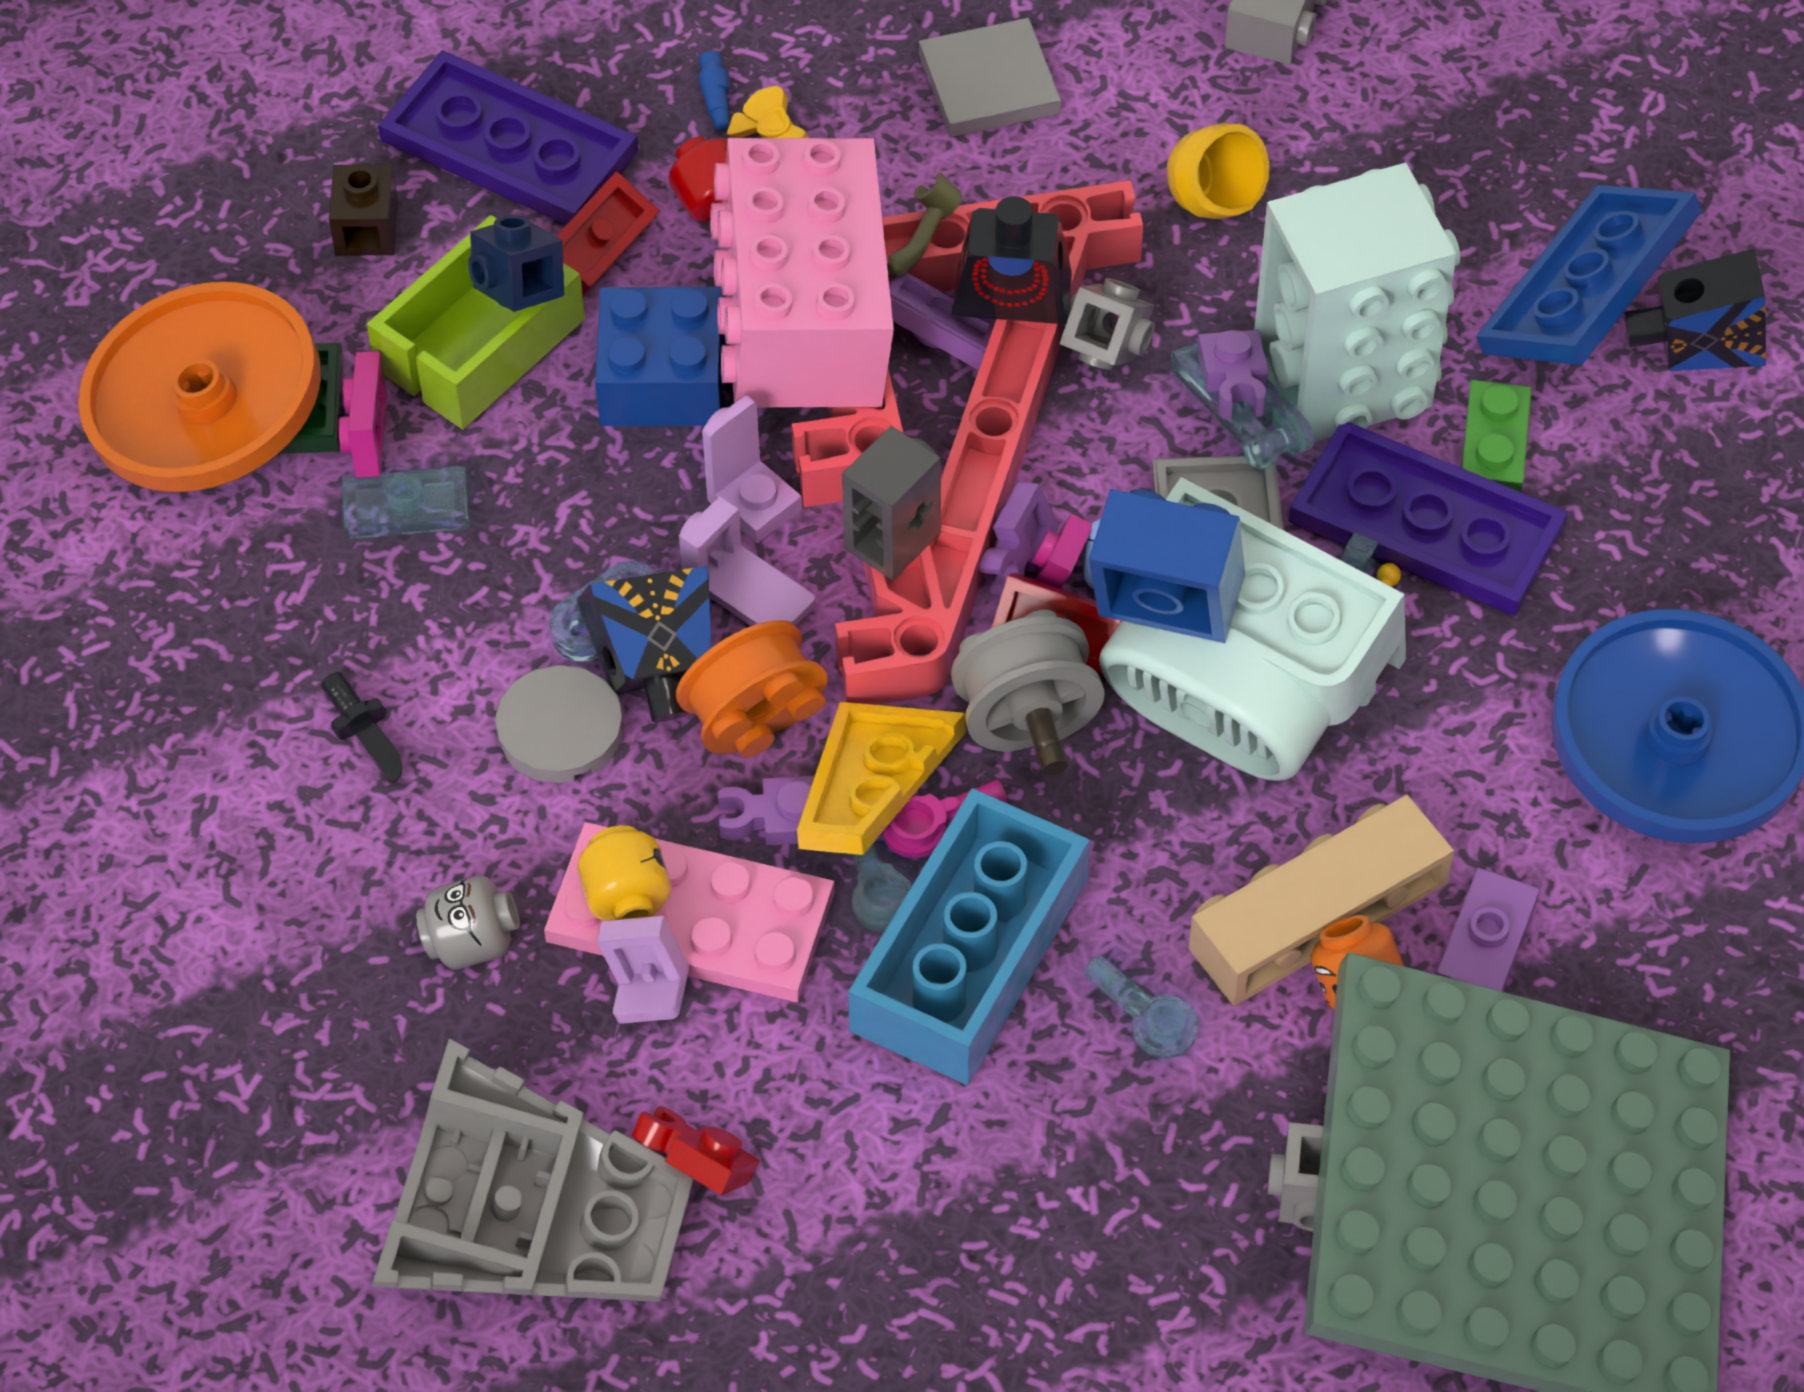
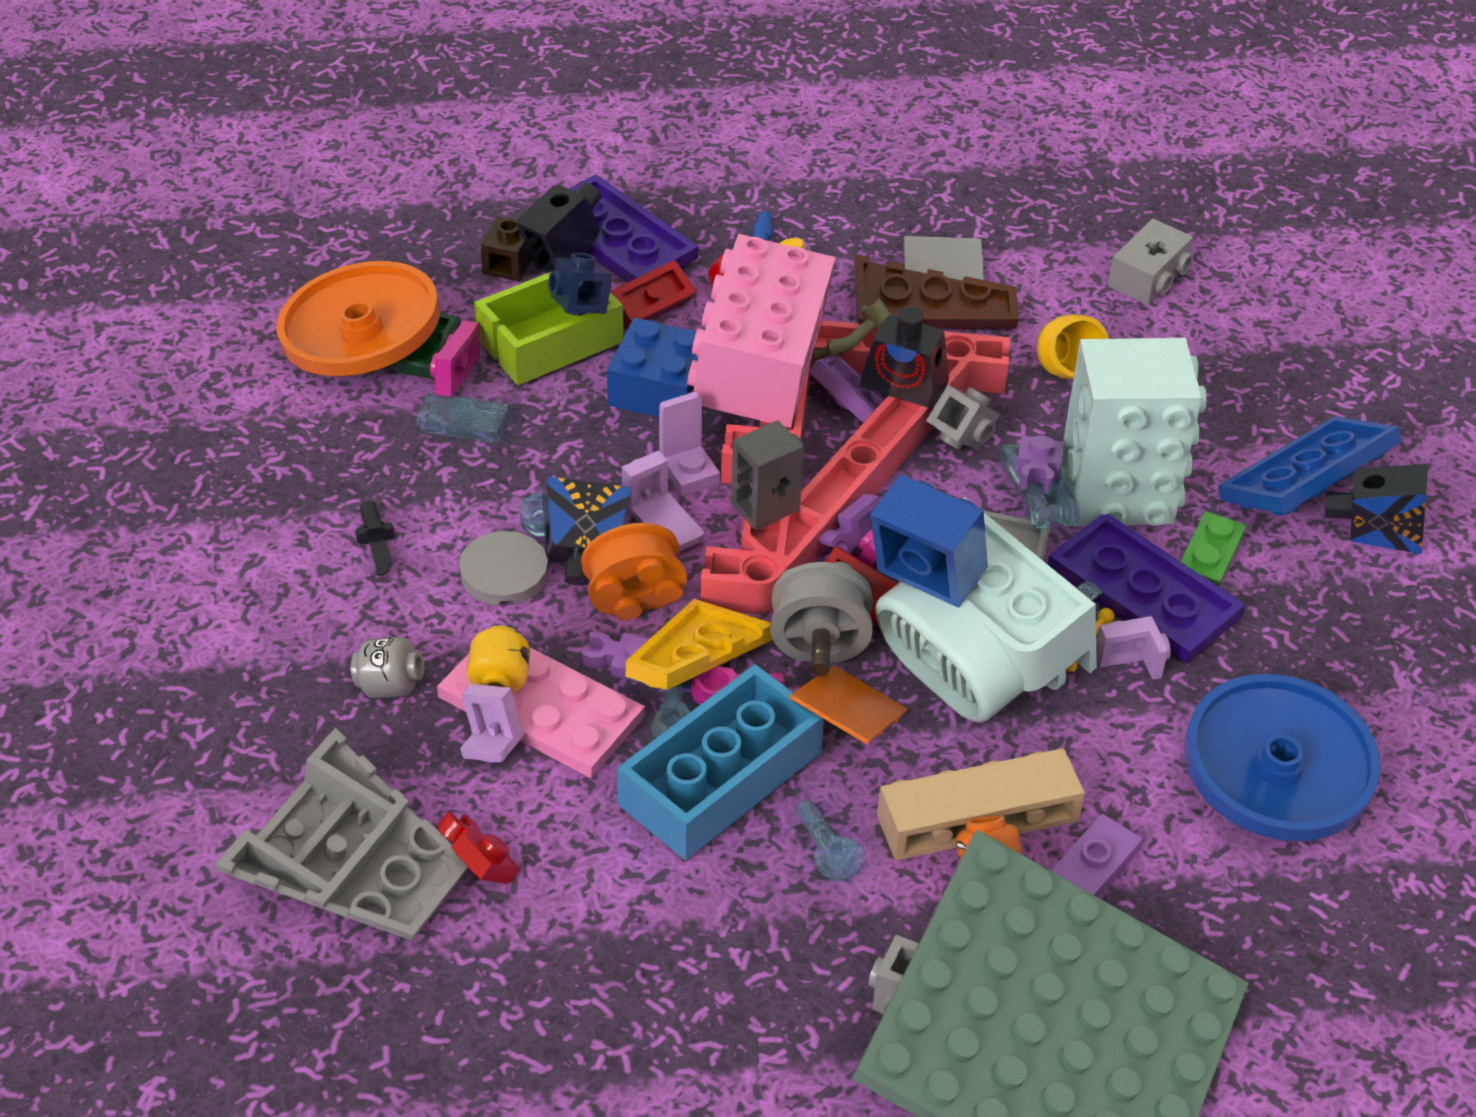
camera: 15 degrees right, 10 degrees down
(438, 164) = (560, 224): none -> black torso
(992, 137) = (941, 299): none -> reddish brown wing
(1109, 807) = (849, 704): none -> orange window
(1447, 603) = (1132, 642): none -> lavender bracket

